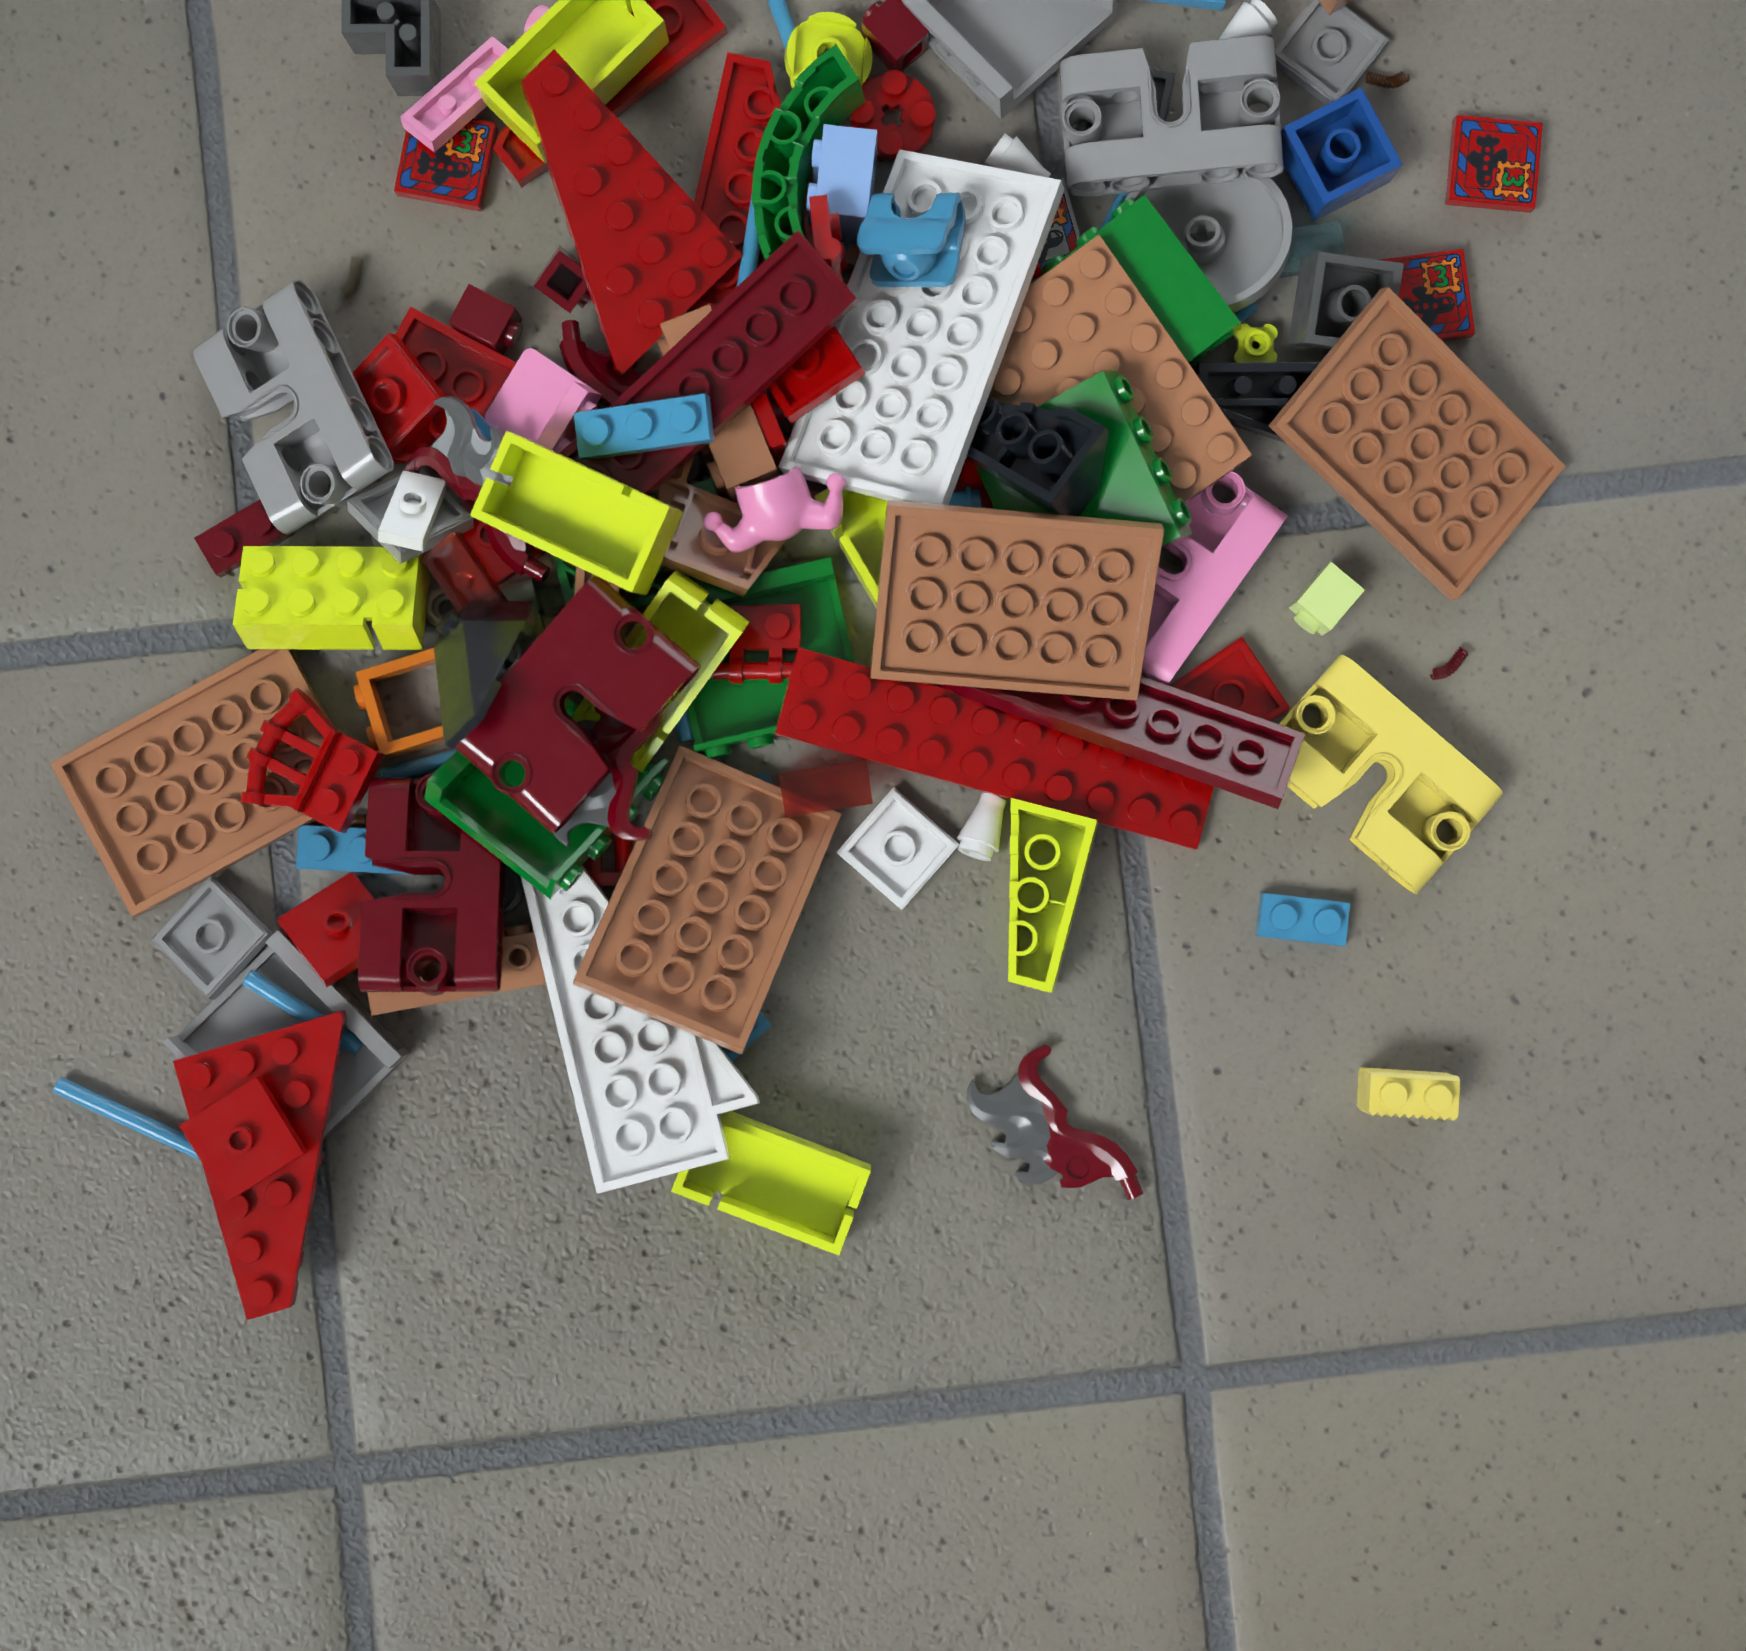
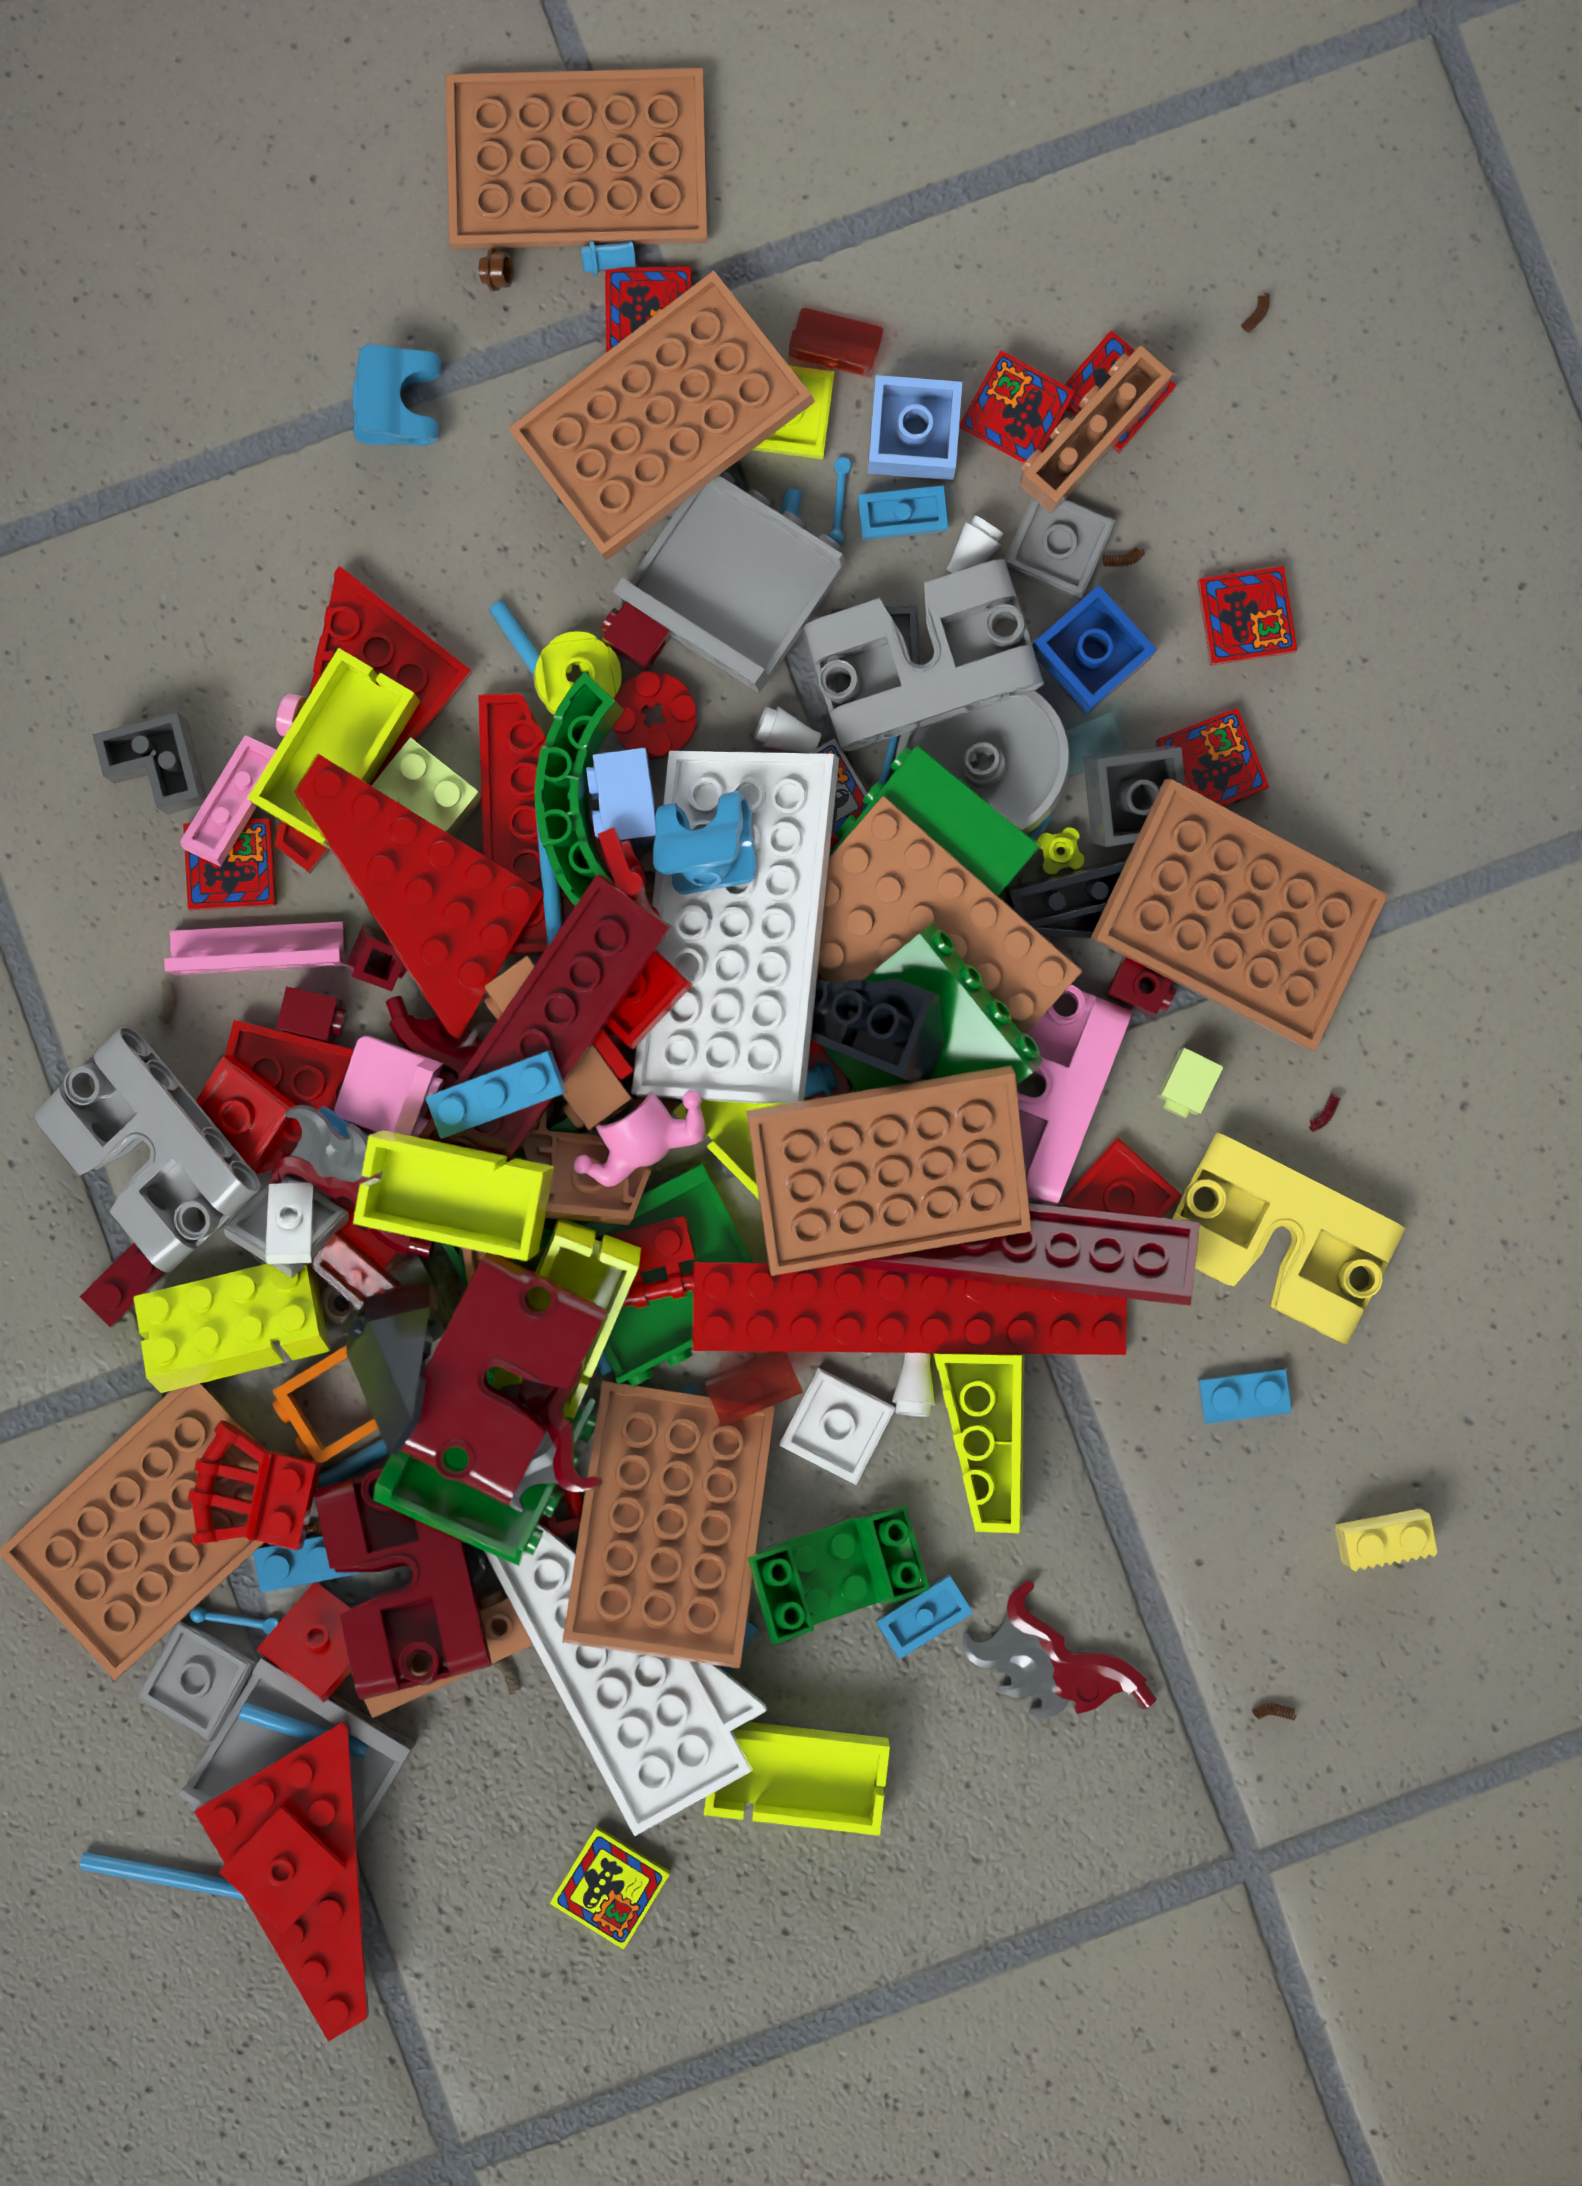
camera: 20 degrees left, 0 degrees up
(233, 875) = (199, 1614): none -> dark azure hinge
(450, 246) = (257, 948): none -> bright pink fence
(514, 1006) = (500, 1667): none -> dark tan leg
(563, 1241) = (610, 1887): none -> tile
(659, 126) = (428, 788): none -> yellowish green brick
(862, 988) = (837, 1571): none -> green slope
(936, 1054) = (924, 1616): none -> dark azure plate
(1250, 1231) = (1274, 1711): none -> reddish brown leg
(1302, 495) = (1141, 988): none -> dark red brick

